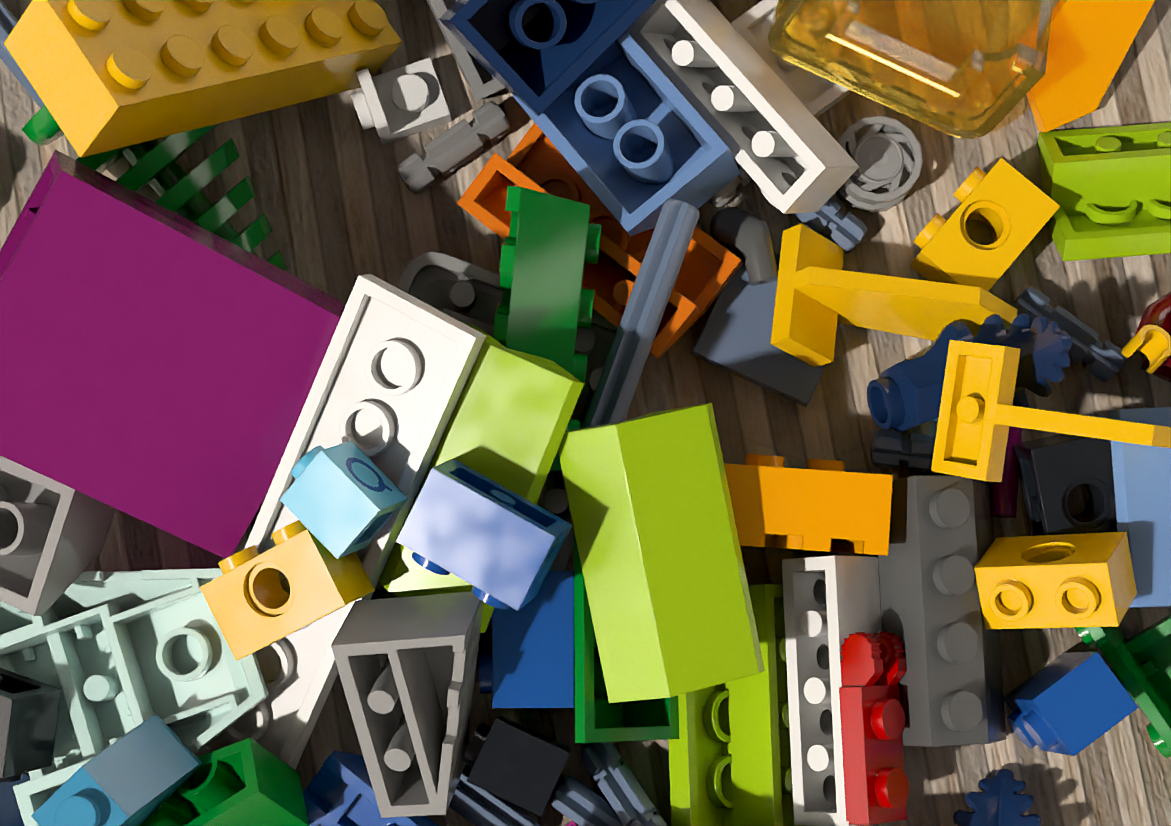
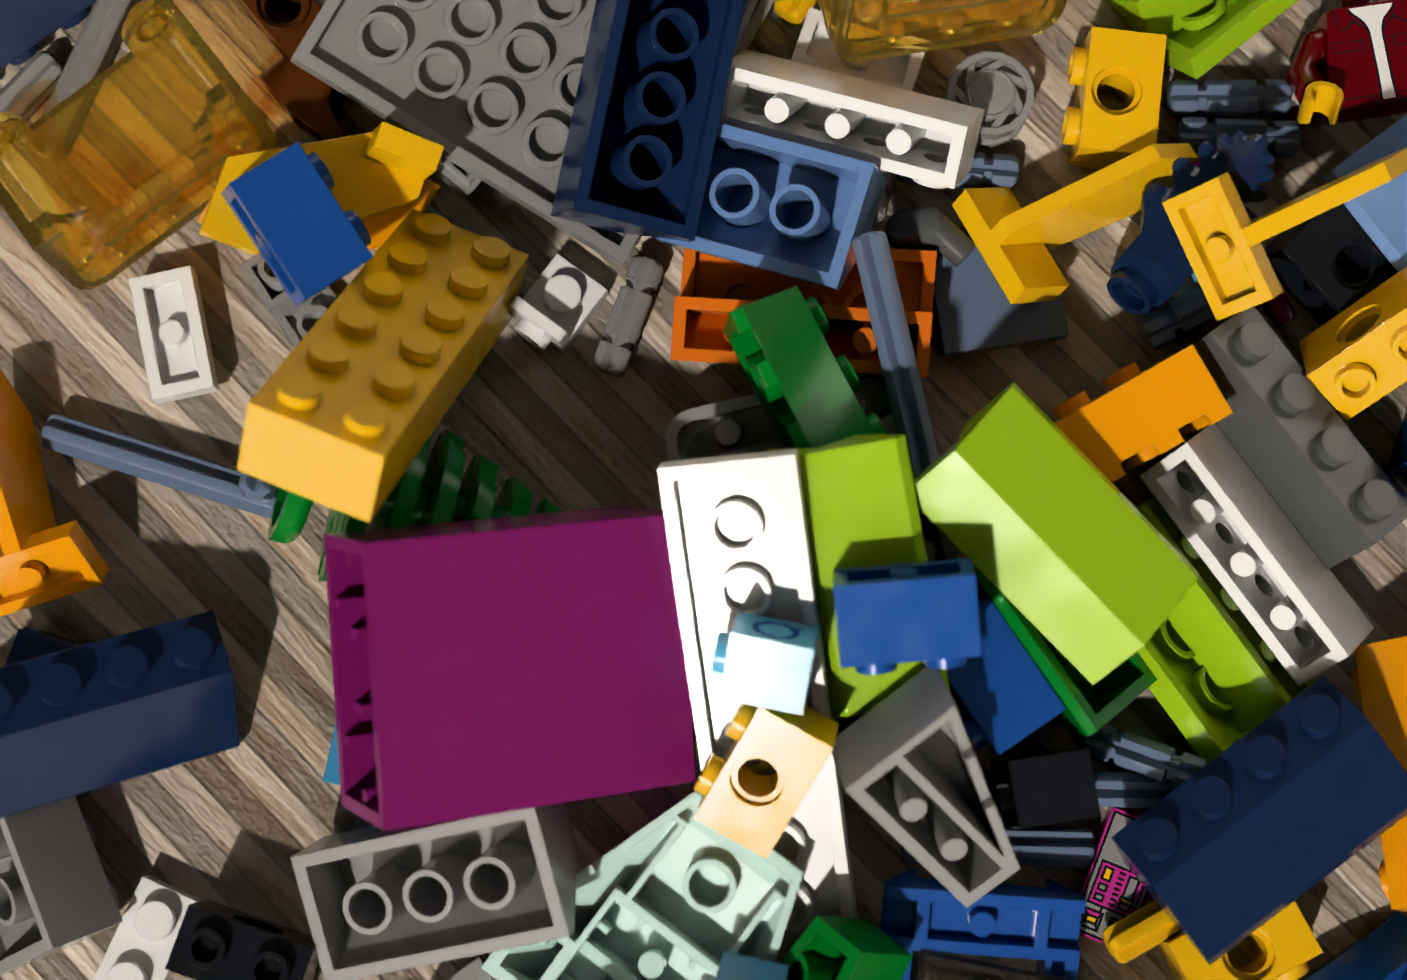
camera: 30 degrees left, 0 degrees up
(873, 728) = (1313, 562): red hinge -> none
(1083, 296) = (1228, 98): none -> sand blue axle

